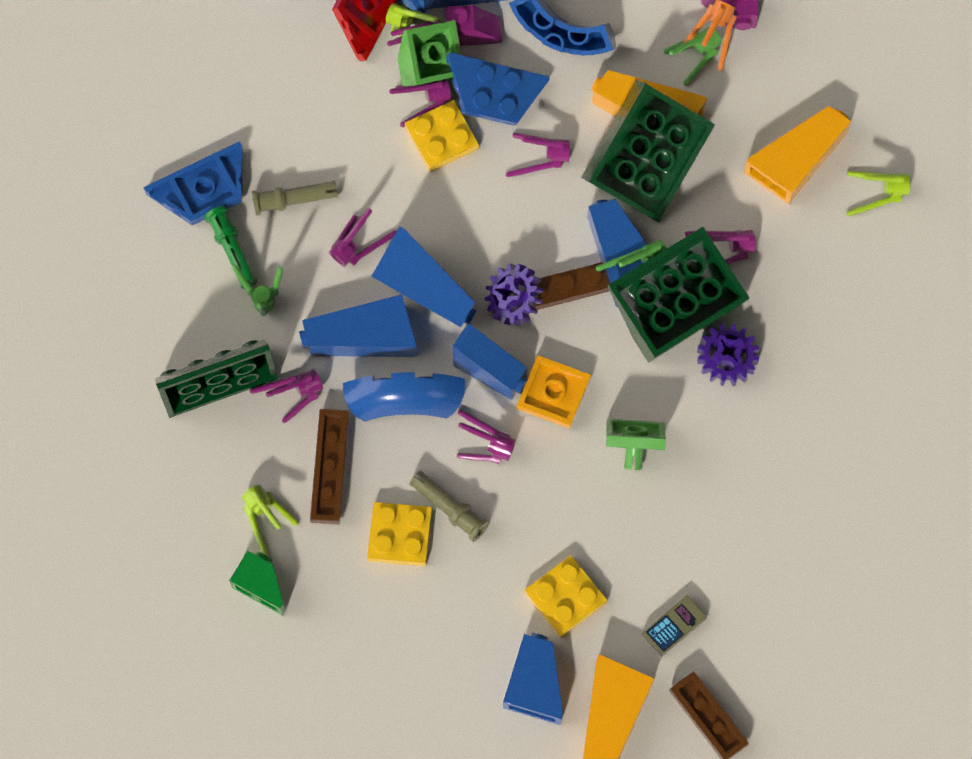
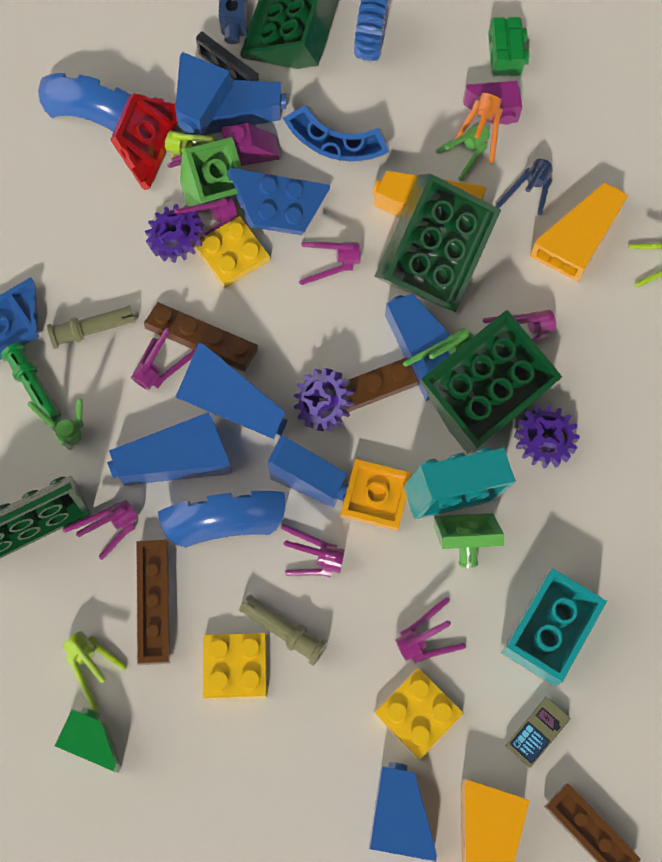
camera: 10 degrees left, 0 degrees up
(386, 112) = (174, 234): none -> dark purple gear
(394, 213) = (191, 331): none -> reddish brown plate
(568, 530) = (412, 643): none -> magenta plant
(632, 388) = (458, 482): none -> teal brick
(702, 532) = (554, 627): none -> teal brick
(763, 89) = (537, 176): none -> dark blue plant

